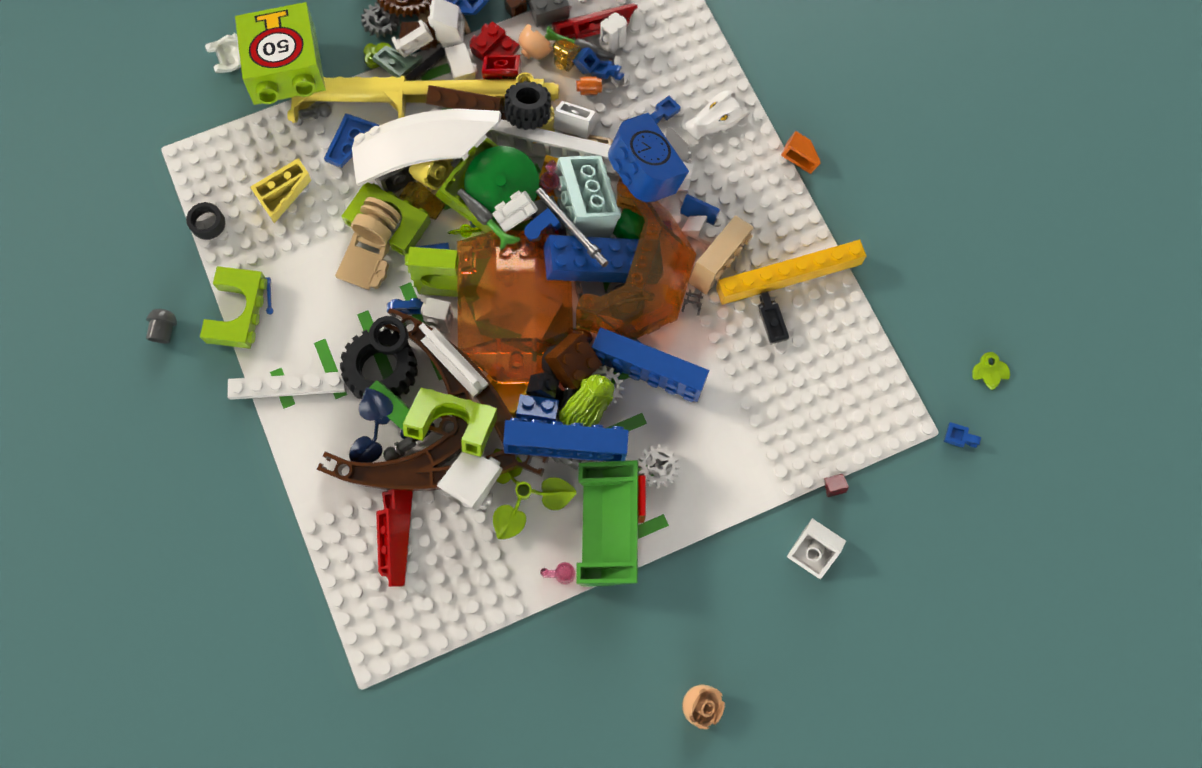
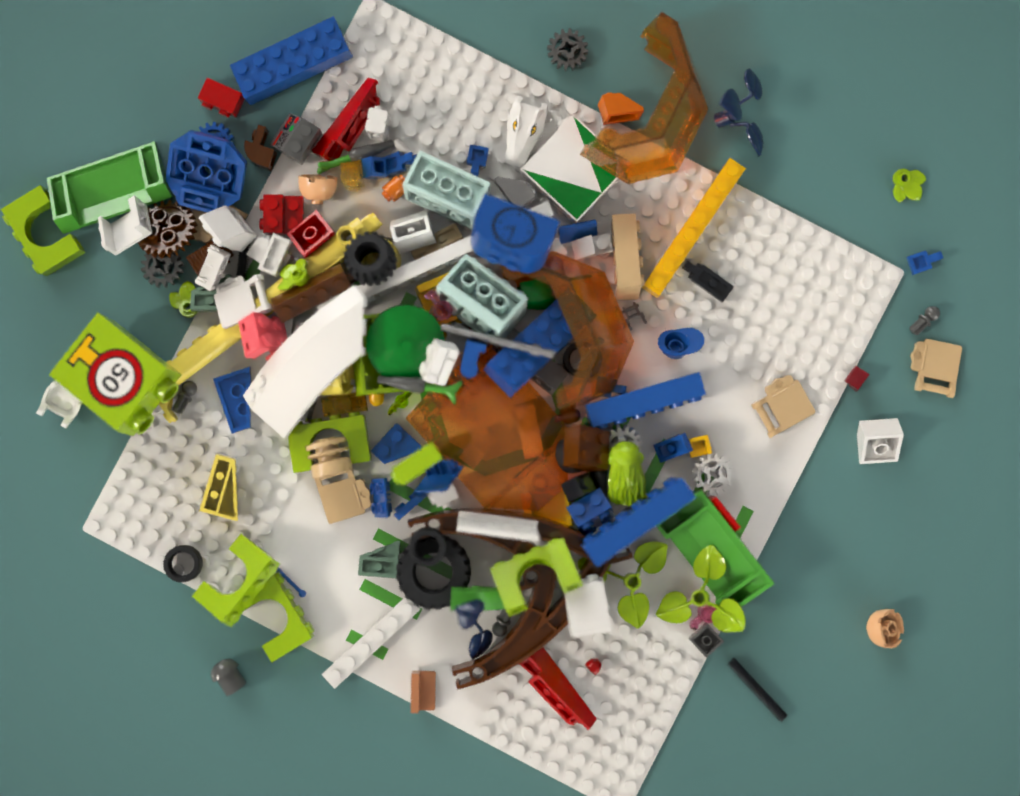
camera: 40 degrees left, 15 degrees up
(253, 260) = (259, 568): none -> lime arch
(290, 453) = (423, 690): none -> nougat panel
(343, 329) = (380, 562): none -> sand green wing
(396, 278) = (378, 489): none -> blue hinge
(404, 99) = (261, 334): none -> coral piece
(410, 70) = (236, 300): none -> white piece
(438, 541) = (593, 665): none -> red hinge
(445, 291) = (439, 476): none -> blue hinge
(449, 215) = (376, 399): none -> yellow hinge
(463, 60) = (274, 255): none -> white plate
(465, 81) = (294, 275): none -> lime plate
(545, 593) = (706, 640): none -> dark grey piece
(553, 670) = (763, 695): none -> black axle
(576, 581) = (726, 617): none -> lime plant
(620, 96) = (445, 189): none -> light aqua brick
(643, 420) = (672, 447): none -> blue slope
(664, 434) = (700, 446): none -> yellow panel
(712, 346) = (680, 342): none -> blue piece
(733, 166) = (565, 175): none -> white tile
(762, 460) = (786, 402): none -> tan piece
(794, 88) = (560, 51): none -> dark grey gear
(828, 182) = (673, 124): none -> clear orange windscreen
(891, 198) = (733, 111): none -> dark blue plant
(913, 524) = (936, 361): none -> tan piece
(937, 482) = (931, 314): none -> dark grey axle

